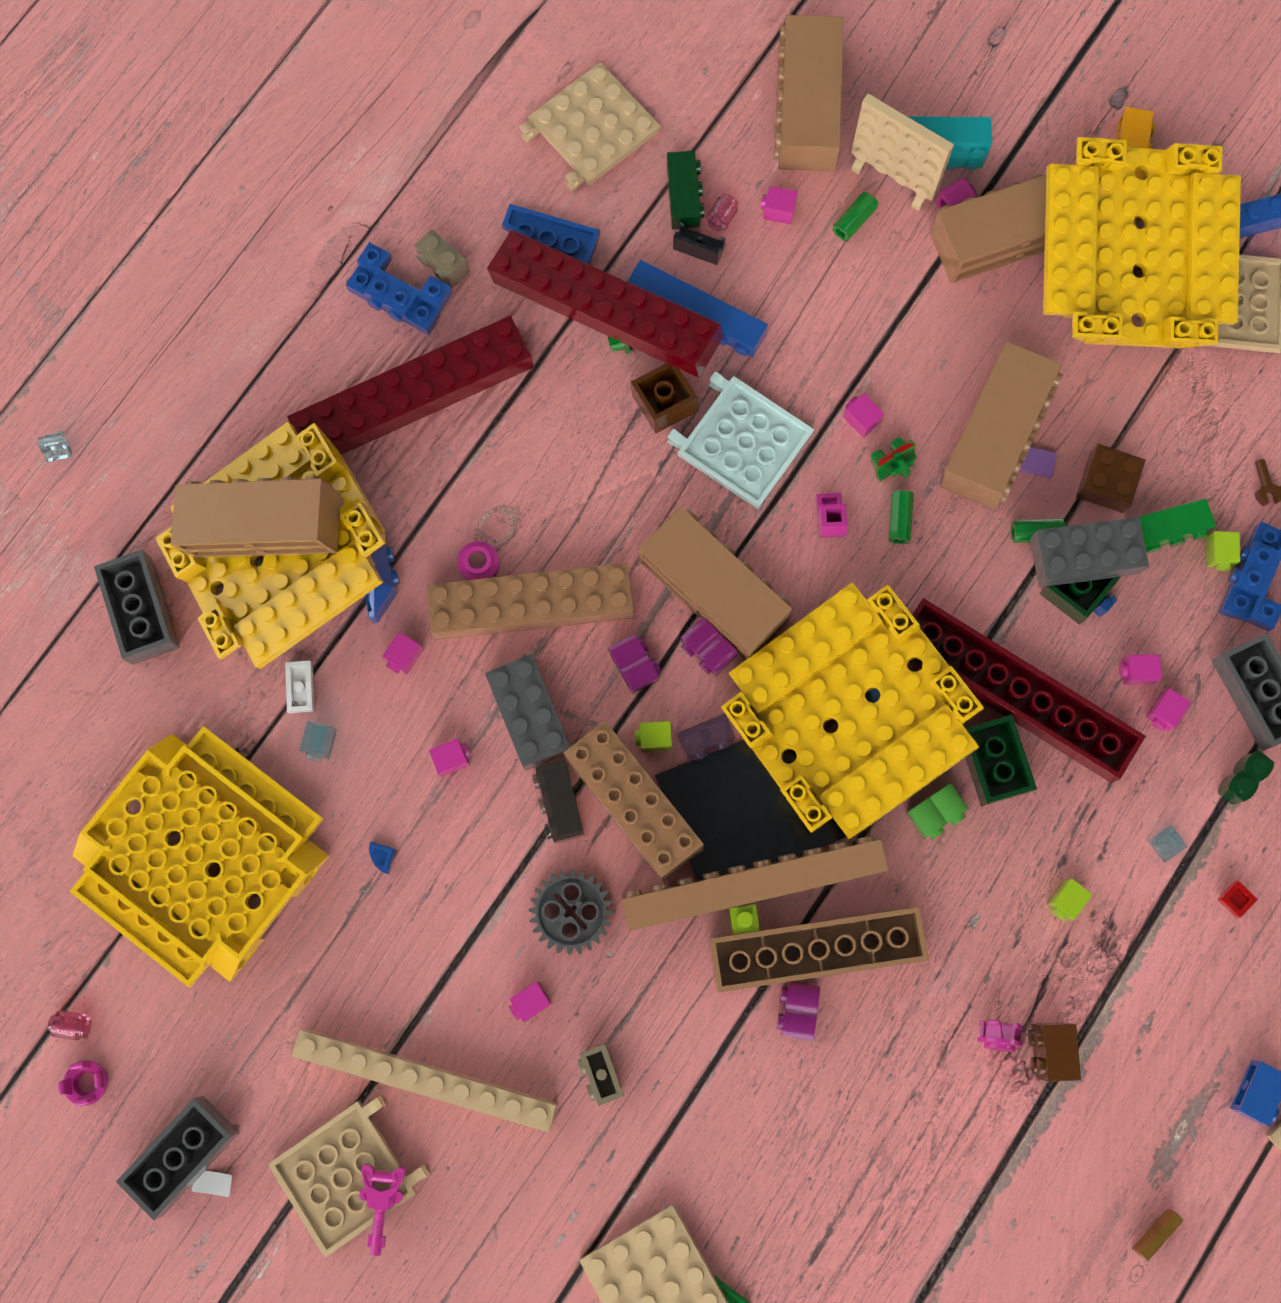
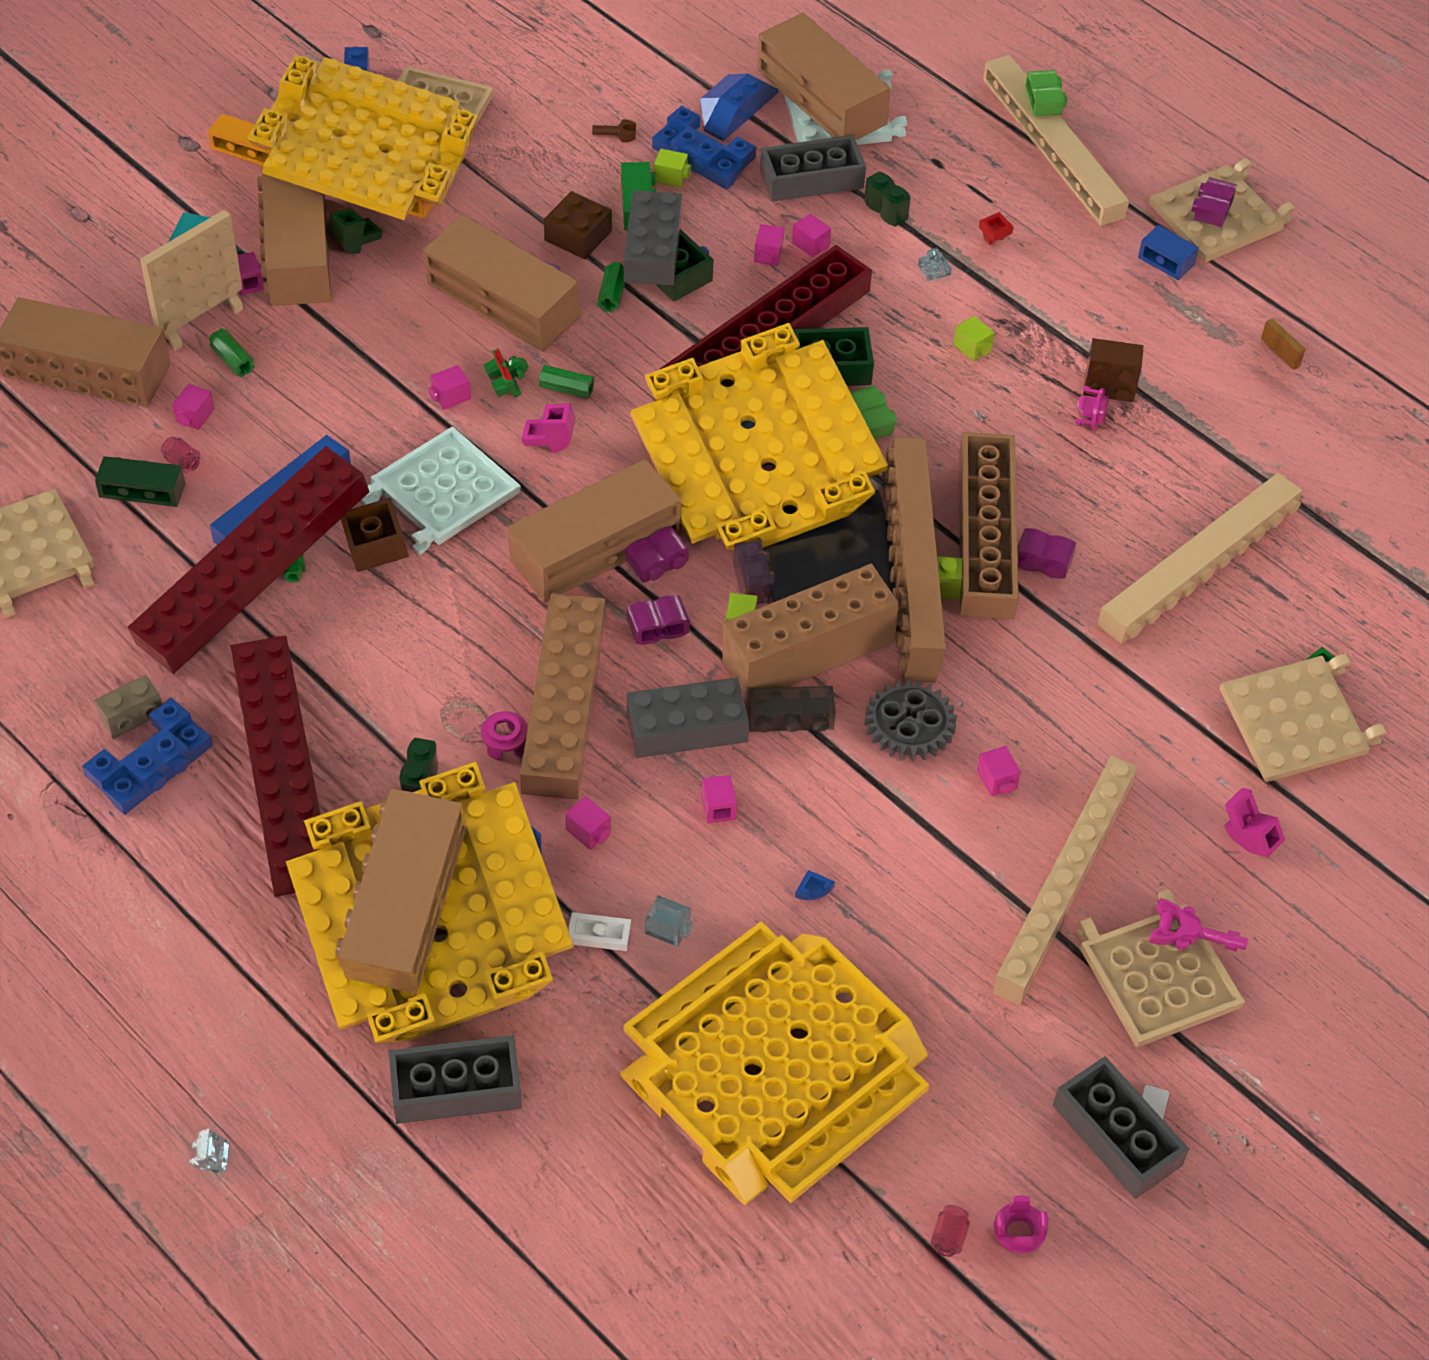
camera: 85 degrees left, 25 degrees down
(429, 502) = (420, 764): none -> dark green brick
(513, 1251) = (1249, 828): none -> dark pink brick
(563, 235) = (152, 584): blue wing -> none
(601, 1073) = (1083, 717): dark tan brick -> none
(698, 244) = (209, 482): black hinge -> none
(836, 1172) = (1199, 558): none -> tan brick
(1030, 272) = (352, 230): none -> dark green brick

